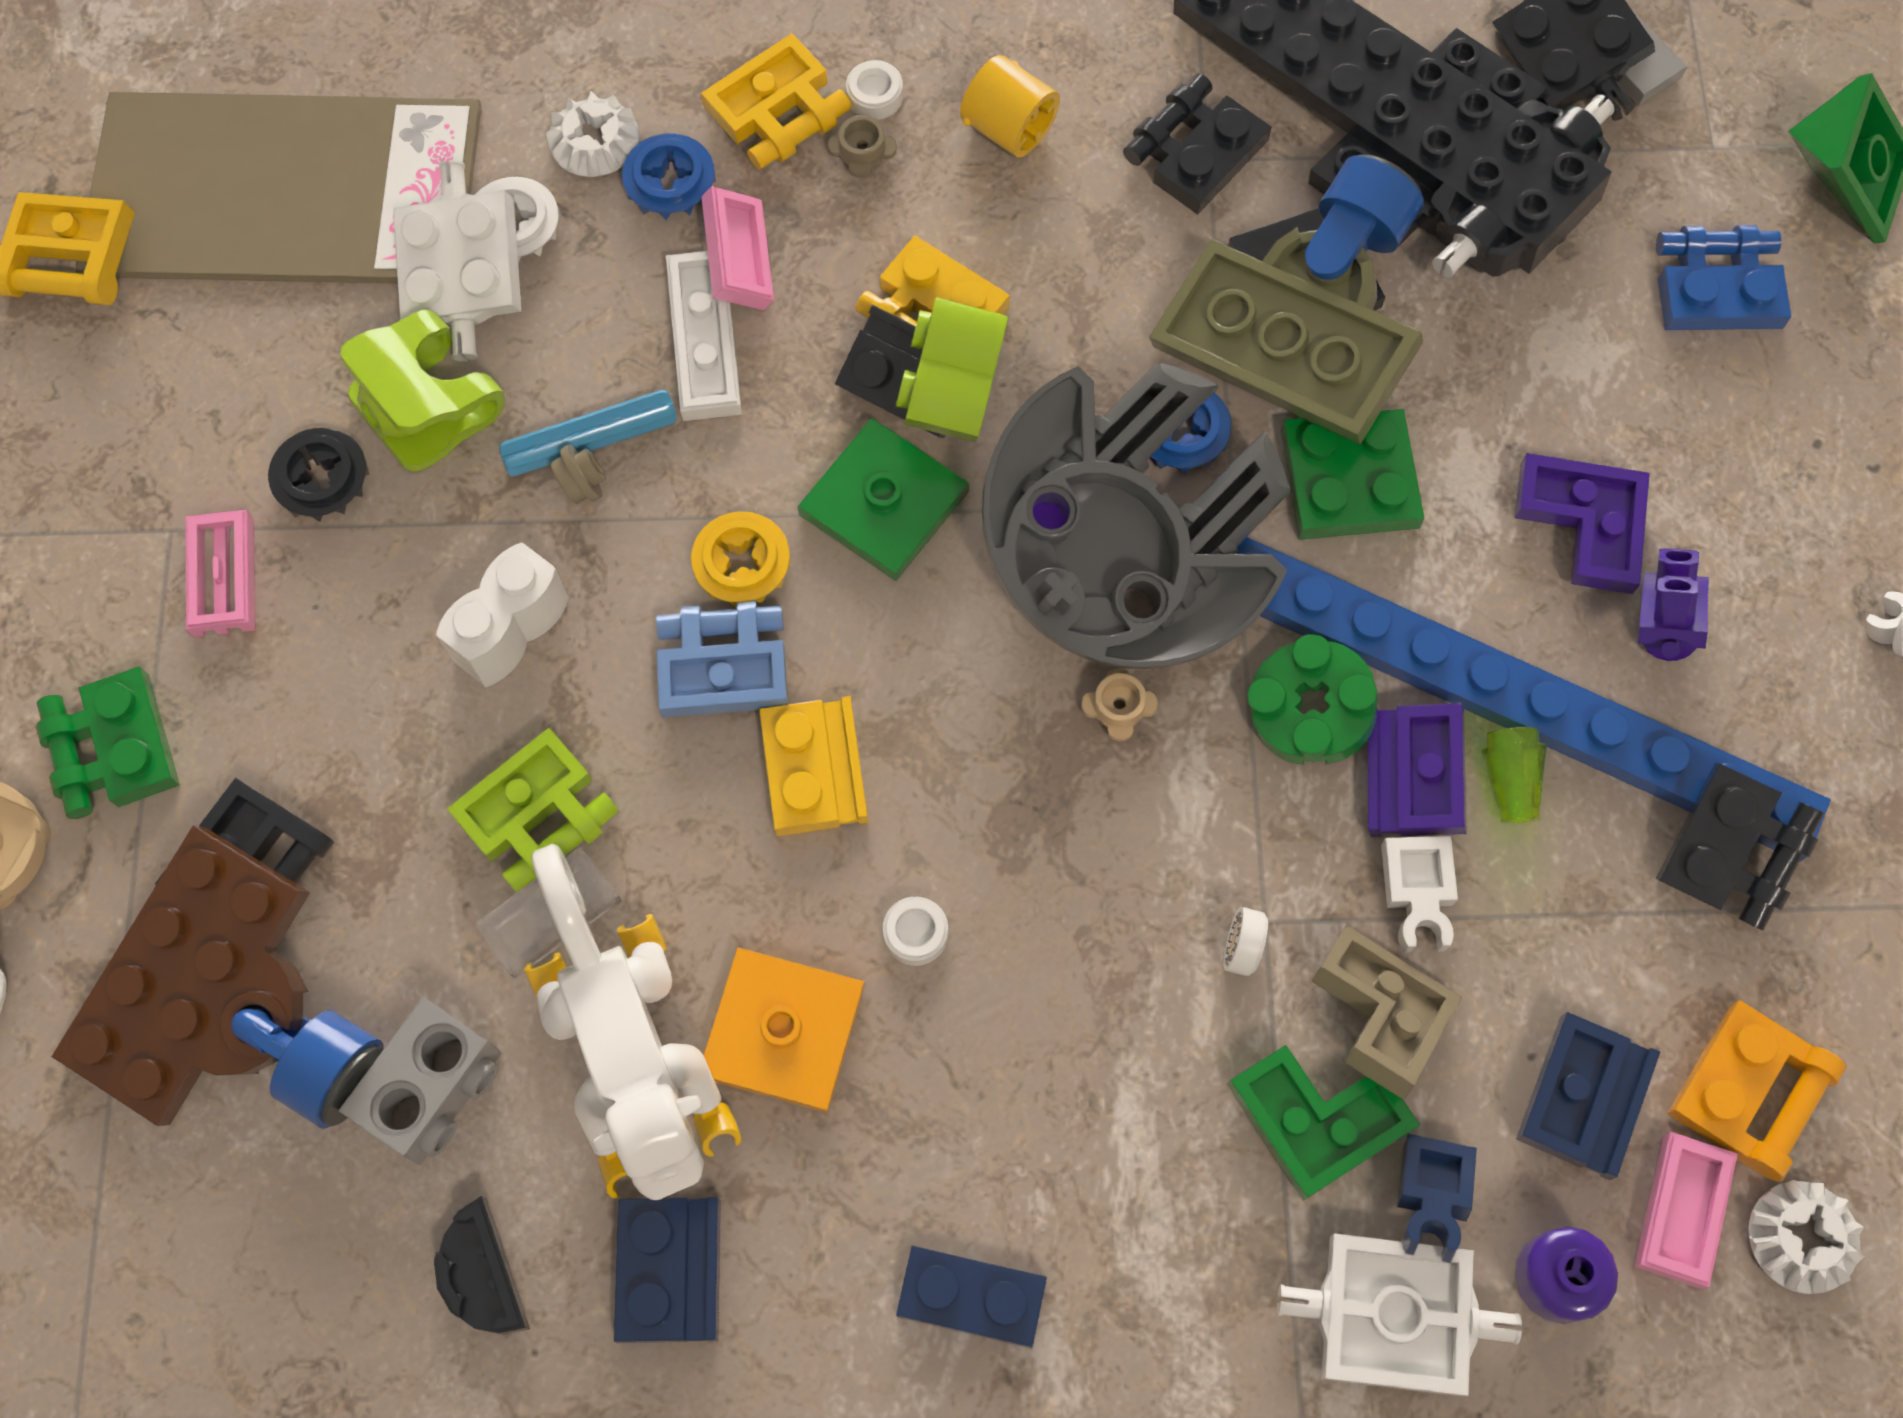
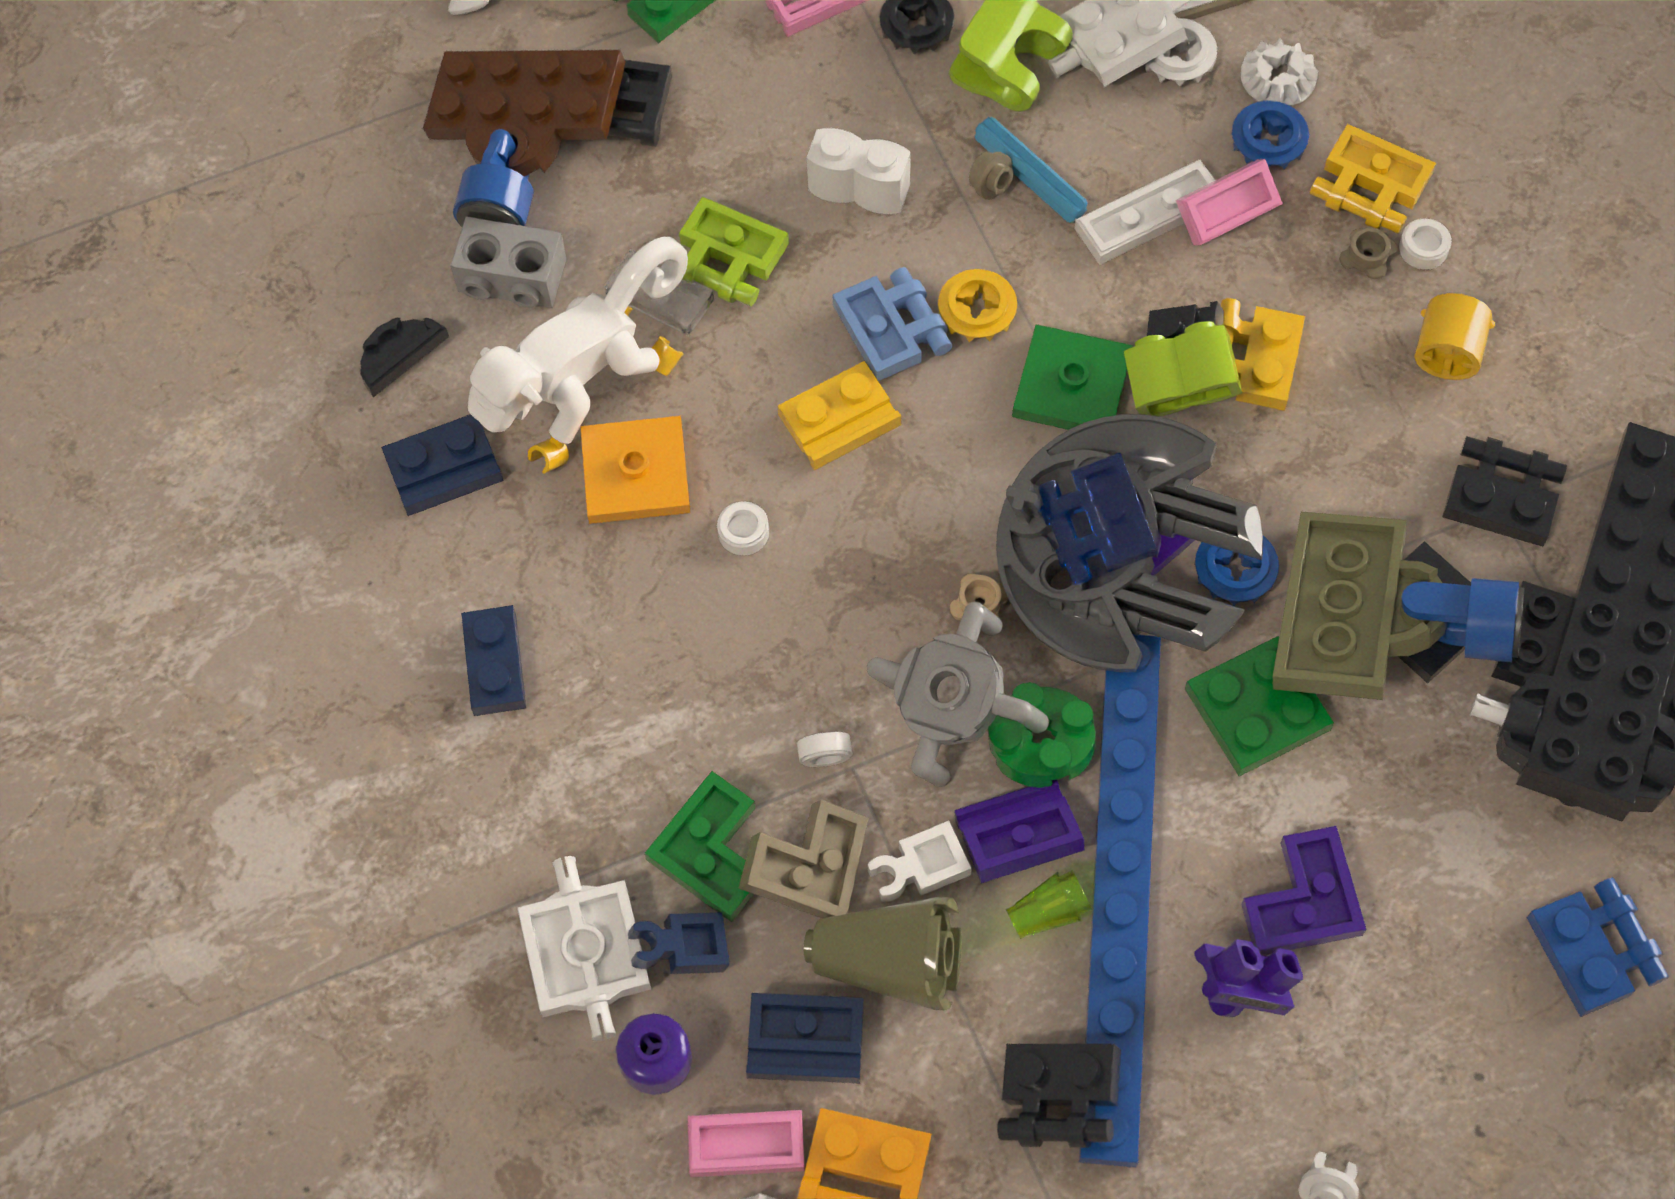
camera: 70 degrees right, 5 degrees down
(1113, 506) = (1113, 513): none -> clear blue plate
(1218, 744) = (975, 706): none -> light grey plate
(1527, 959) = (892, 950): none -> olive cone

